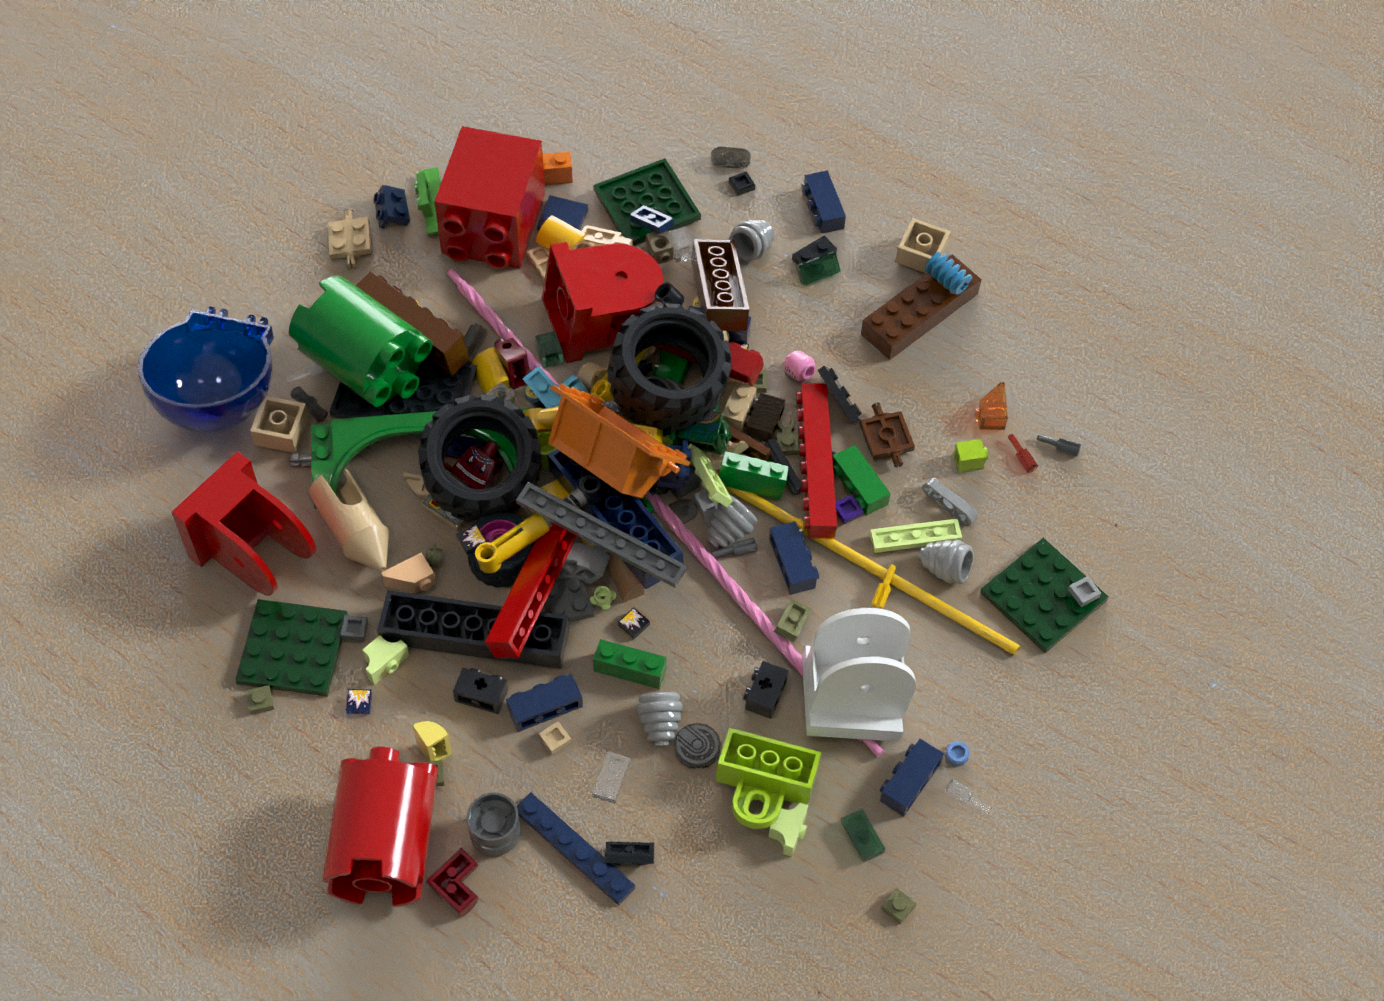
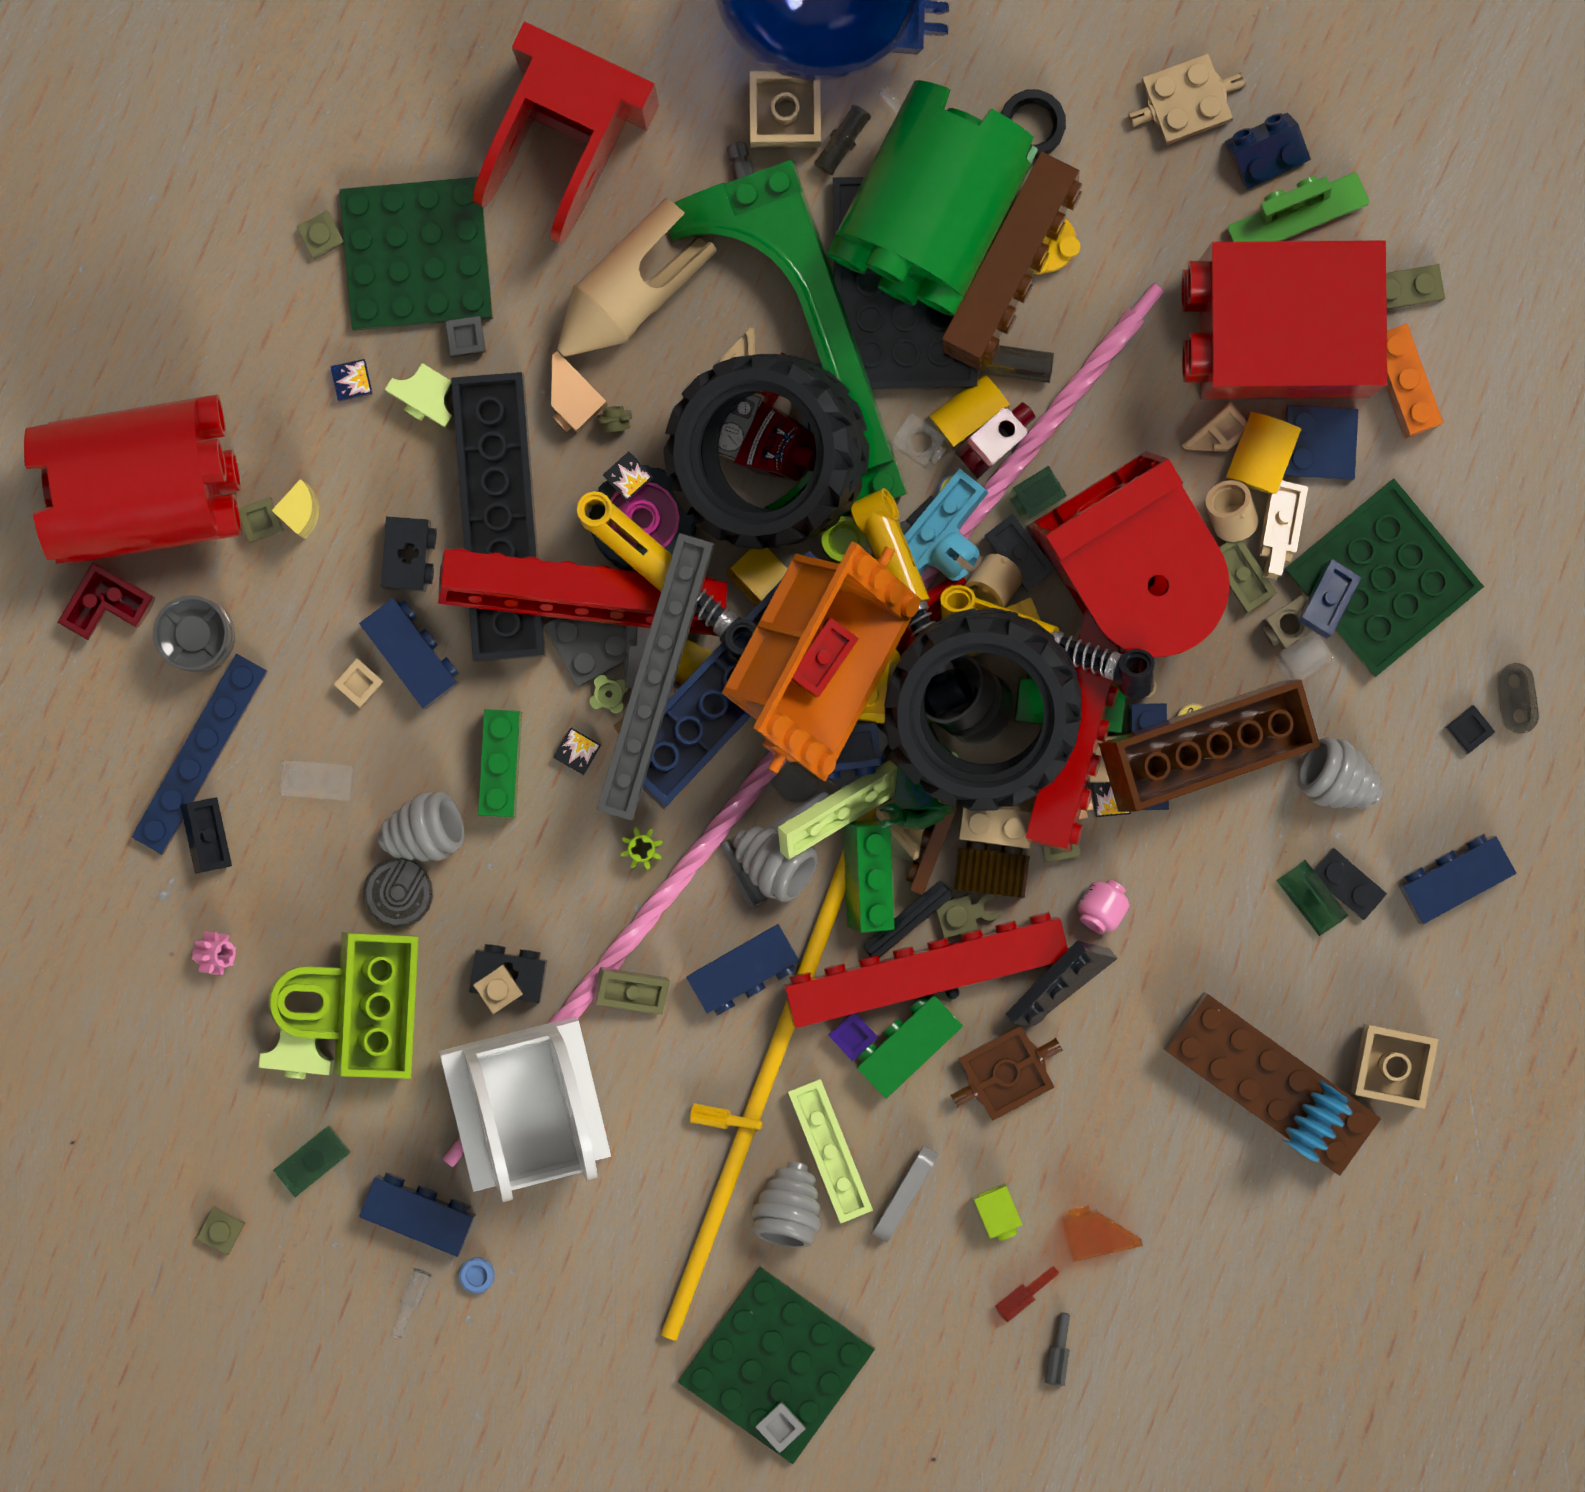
camera: 80 degrees right, 30 degrees up
(573, 365) = (1015, 543): none -> black plate
(704, 591) = (646, 839): none -> lime gear
(710, 864) = (213, 953): none -> bright pink gear
(774, 689) = (498, 989): none -> tan plate

